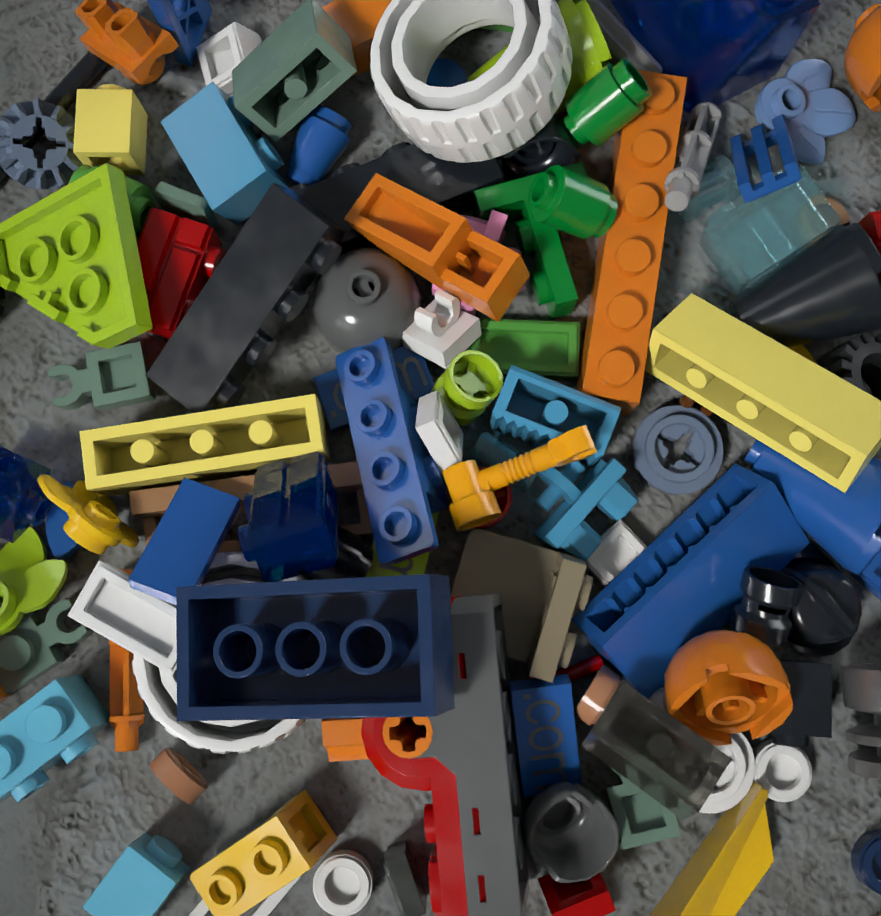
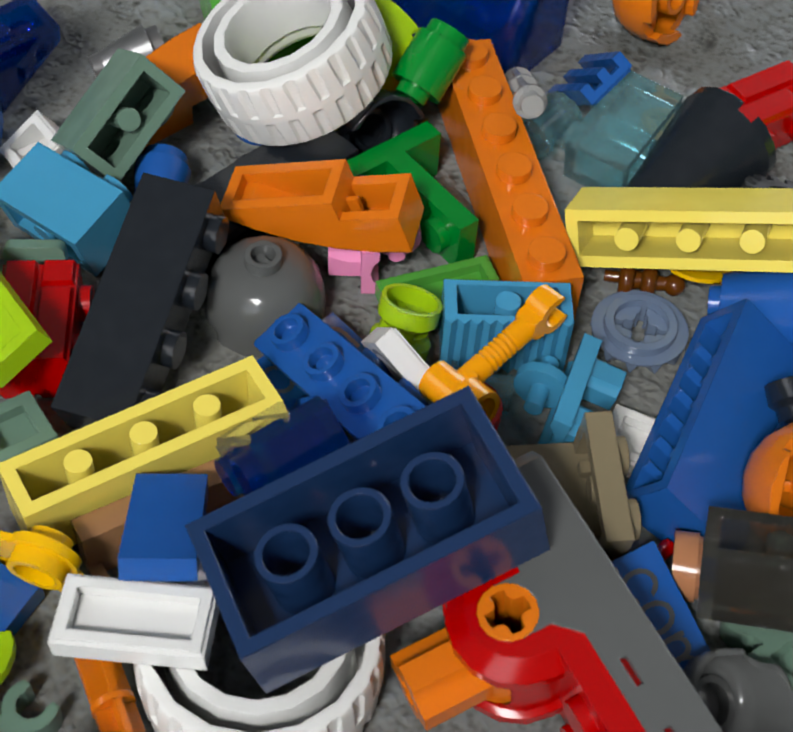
camera: 25 degrees left, 30 degrees down
(441, 330) = (351, 286): white tile -> none
(572, 203) = (436, 142): green brick -> none
(808, 108) = (595, 38): medium blue plate -> none

